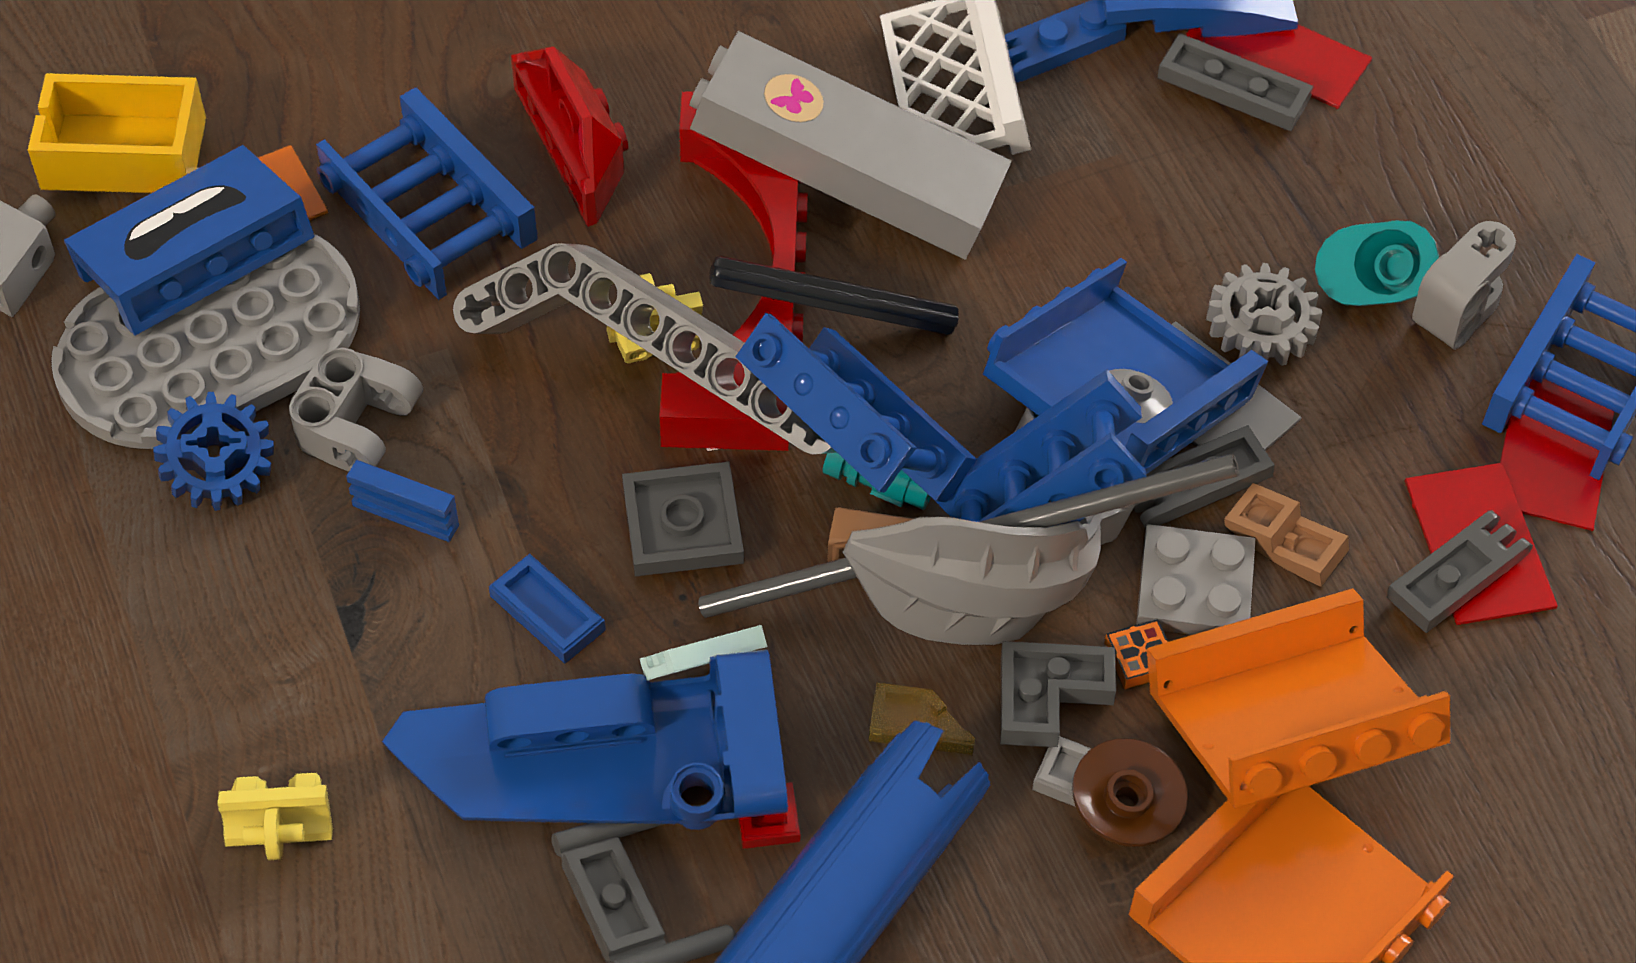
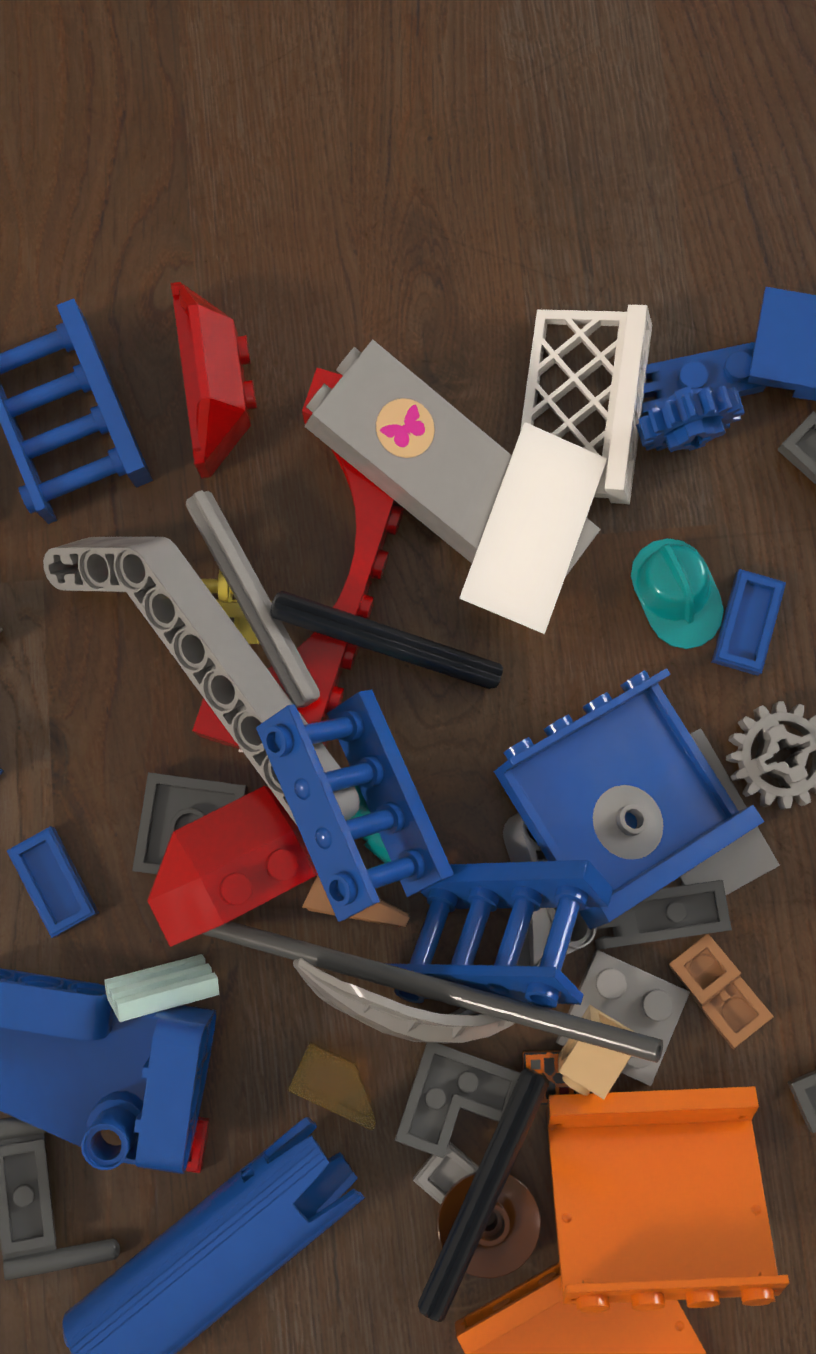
camera: 20 degrees right, 25 degrees up
(673, 273) = (252, 599): none -> light grey axle
(744, 521) = (228, 865): none -> red wedge
(946, 166) = (533, 528): none -> white sticker
(1063, 54) = (690, 418): none -> blue gear
(1107, 211) = (677, 593): none -> teal piece
(1113, 755) = (483, 1195): none -> black axle
(1180, 591) = (591, 1067): none -> tan brick
(1187, 221) = (748, 622): none -> blue tile

